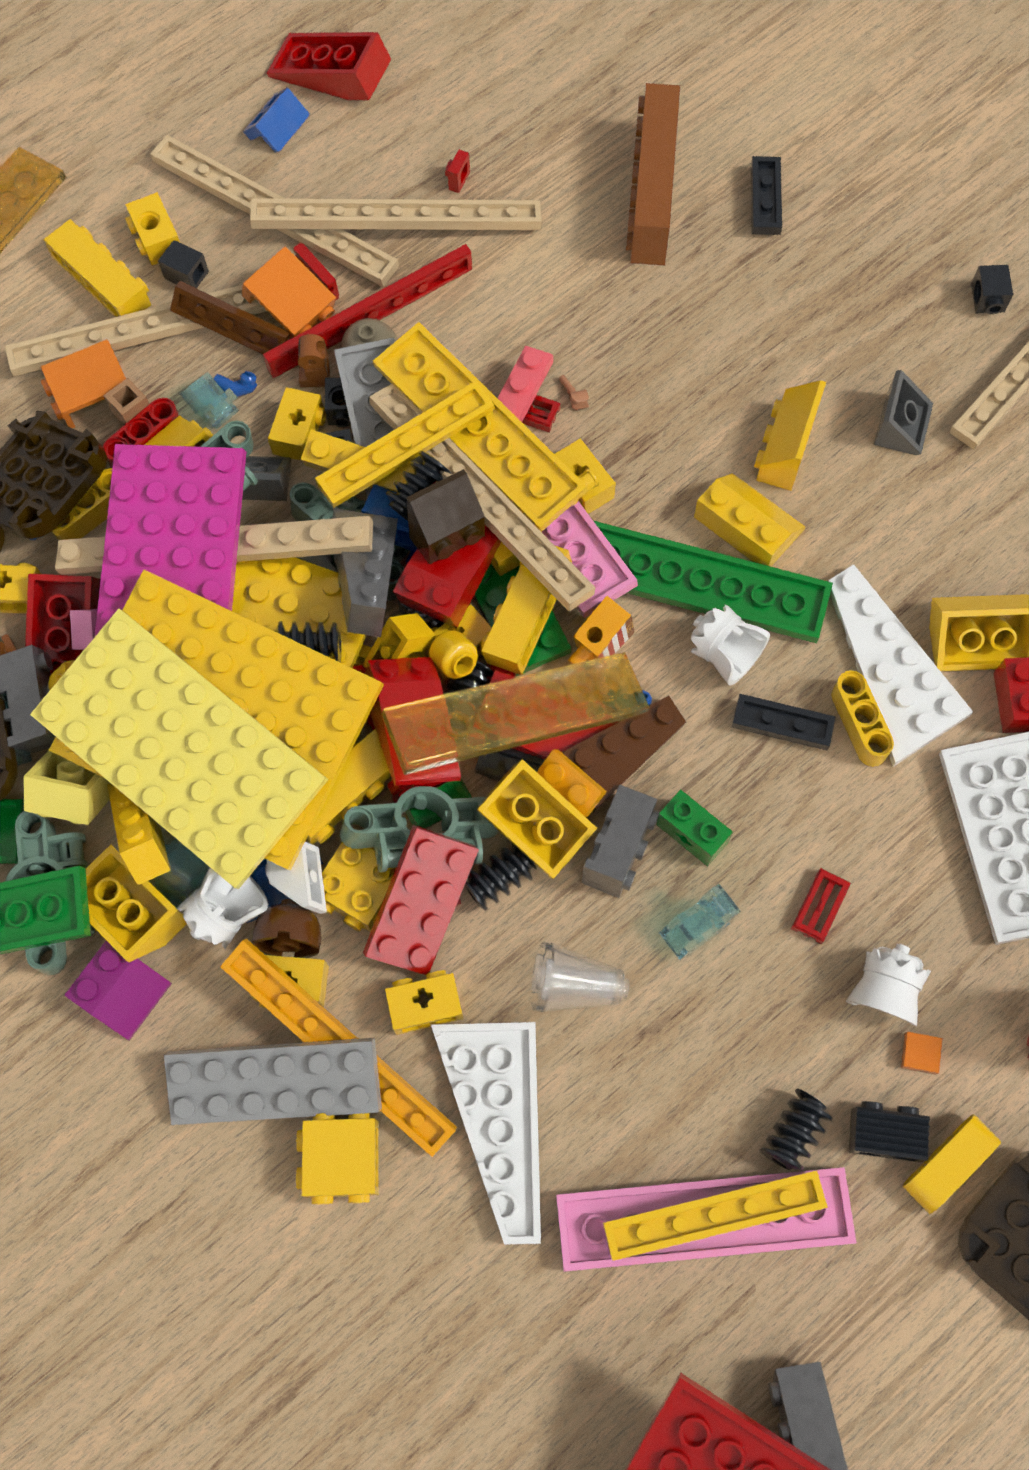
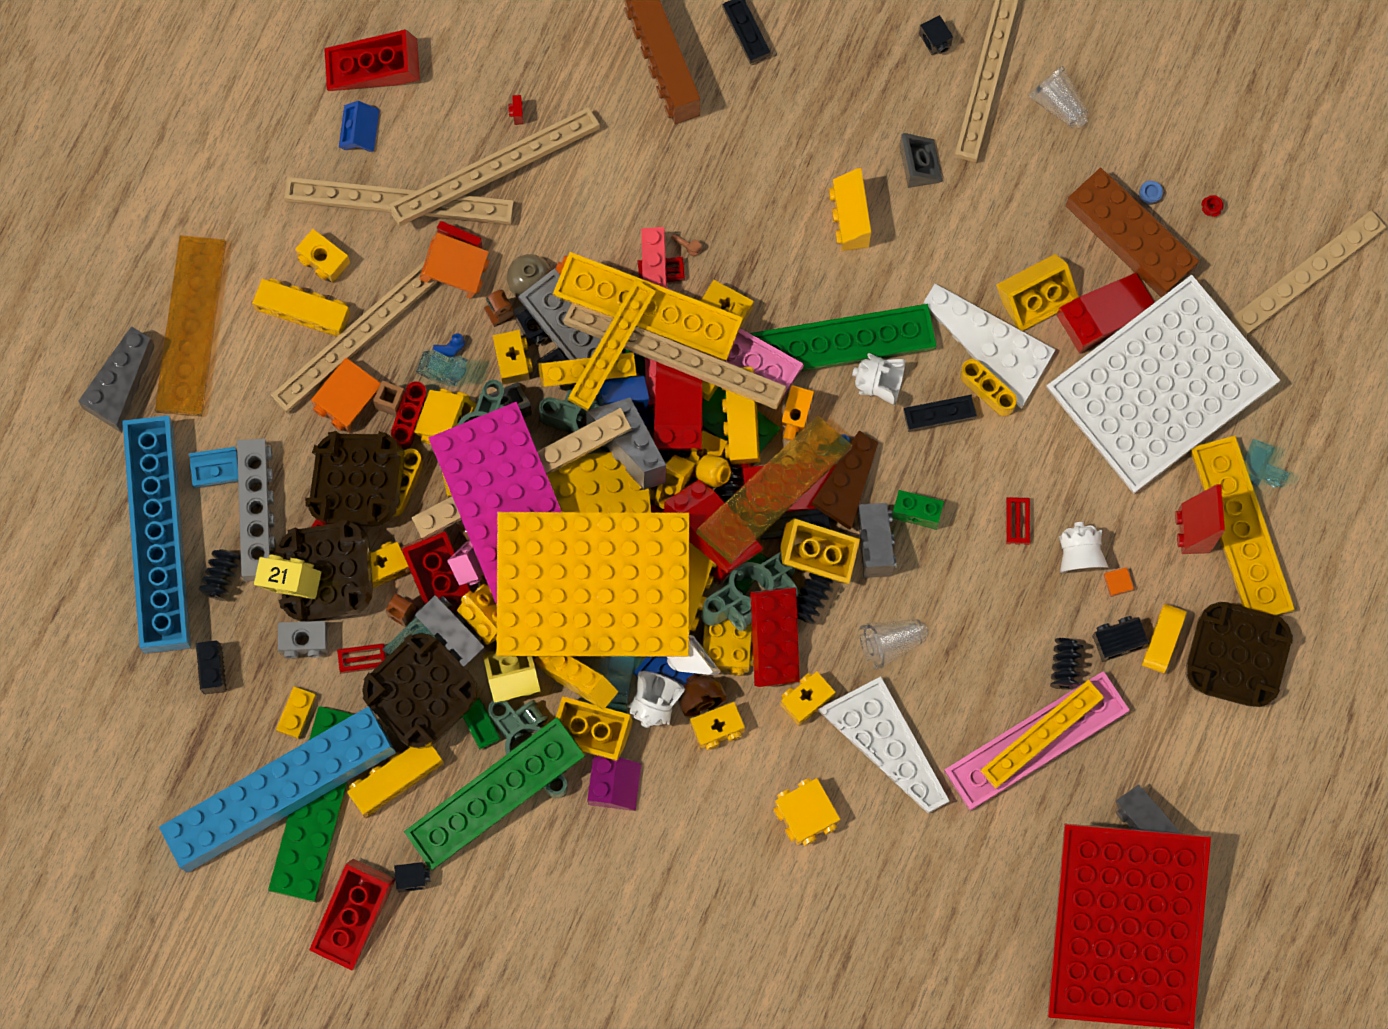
camera: 30 degrees left, 5 degrees up
(179, 748) = (582, 613): light yellow plate -> none
(183, 264) = (361, 275): black panel -> none
(226, 319) = (423, 304): reddish brown plate -> none
(273, 1081) = (742, 788): light grey plate -> none
(314, 1024) = (771, 748): light orange plate -> none
(321, 641) = (627, 505): black piece -> none
(375, 306) = (514, 248): red tile -> none
(425, 475) = (635, 370): black piece -> none
(445, 517) = (667, 385): dark brown slope -> none
(571, 782) = (828, 517): light orange plate -> none
(700, 922) = (950, 567): clear light blue brick -> none
(747, 520) = (851, 283): yellow slope -> none

